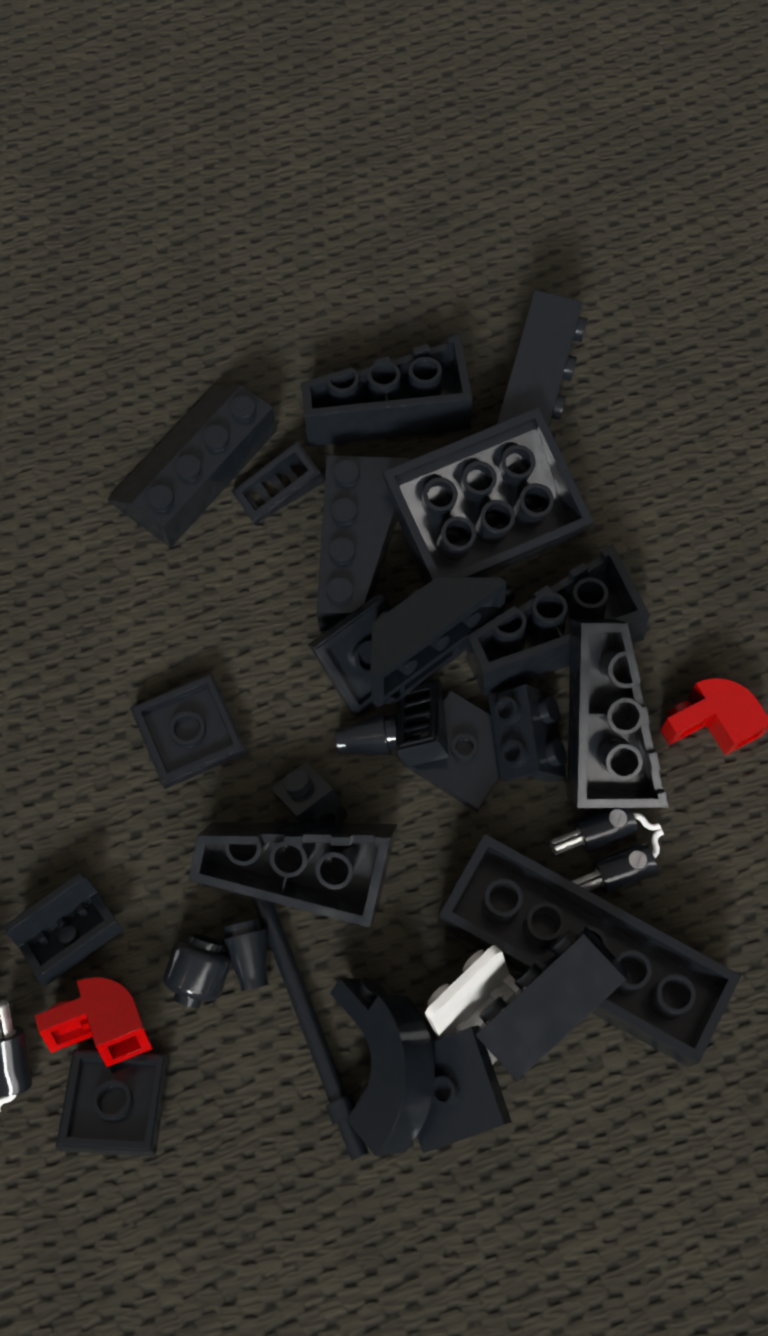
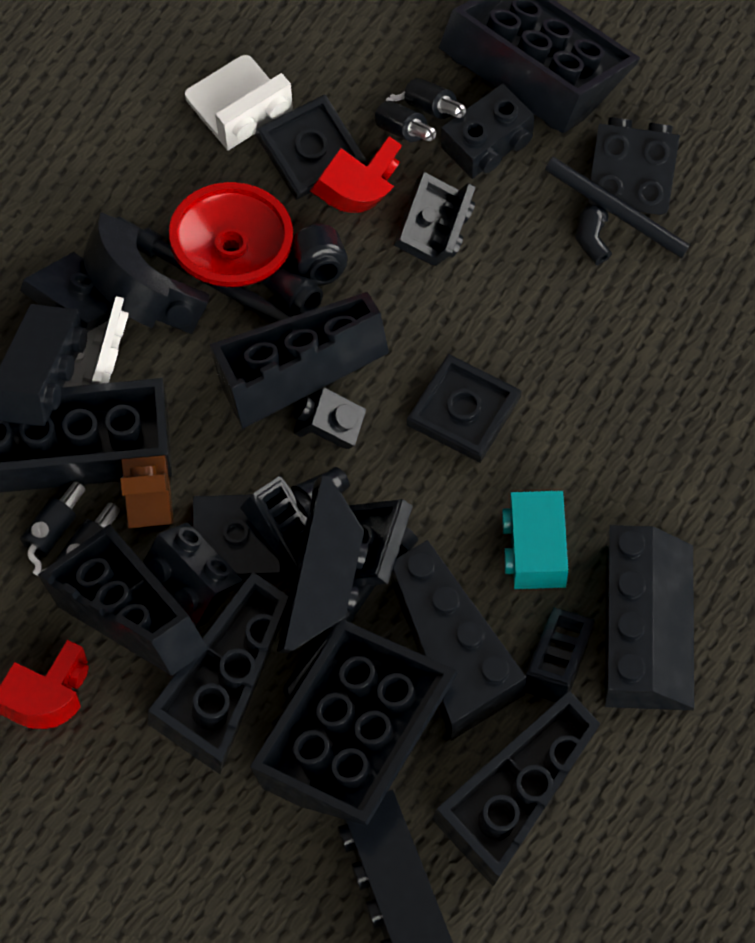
camera: 145 degrees right, 5 degrees down
(140, 1215) = (239, 100): none -> white bracket
(225, 568) = (537, 540): none -> teal brick
(232, 1037) = (227, 218): none -> red dish
(524, 816) = (147, 491): none -> reddish brown brick

